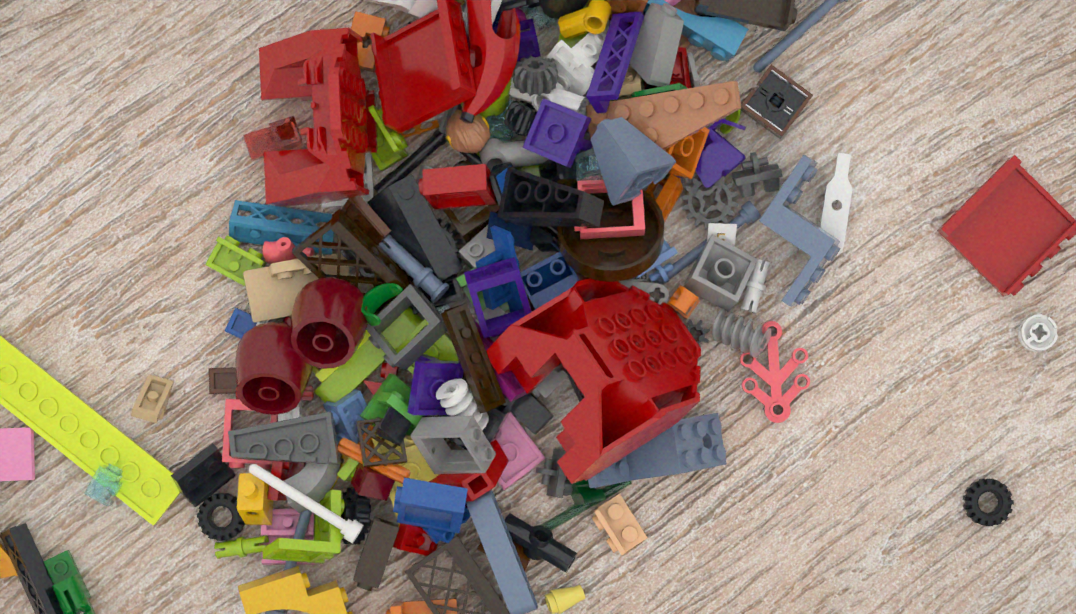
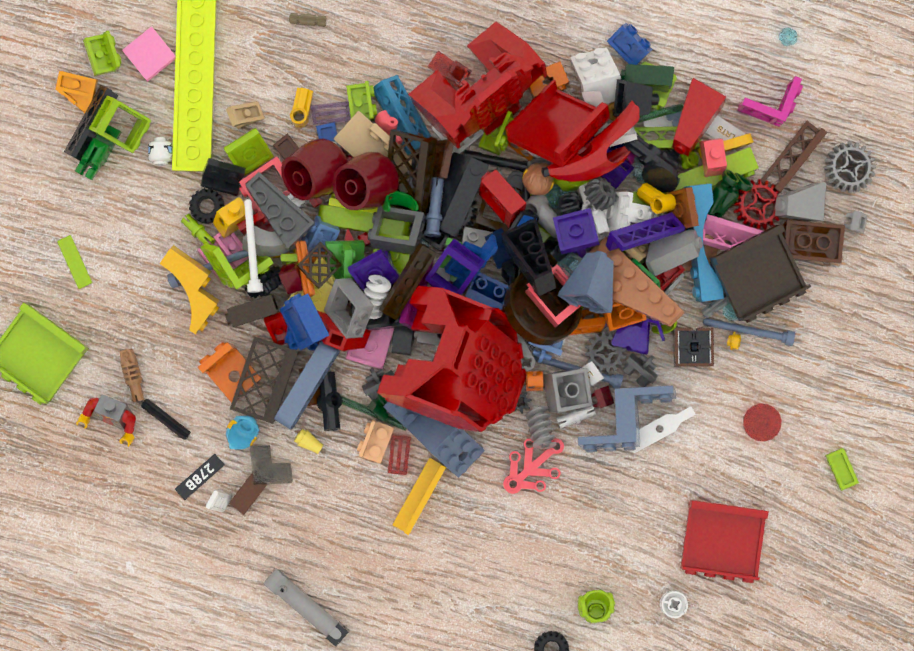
camera: 50 degrees right, 0 degrees up
(38, 555) = (104, 117): none -> lime window
(100, 252) = (307, 19): none -> dark tan axle
(104, 484) = (175, 124): clear light blue brick -> none
(123, 523) = (160, 151): none -> white head
(190, 329) = (301, 106): none -> yellow piece
(196, 425) = (249, 151): none -> lime bracket
(210, 323) = (330, 105): none -> clear purple tile
(393, 426) = (333, 265): black slope -> none
(448, 156) = (515, 179): none -> black tile
(669, 525) = (397, 471): none -> clear red tile
(714, 521) = (419, 496): none -> yellow fence
(748, 45) = (715, 306): none -> light grey axle
(757, 240) = (603, 397): none -> dark red tile
(766, 35) = (729, 313): none -> clear light blue plate
(801, 53) = (734, 341): none -> yellow plate
(912, 89) = (762, 422): none -> clear red tile
(978, 418) = (596, 606): none -> lime hair
(1026, 41) = (842, 469): none -> lime tile

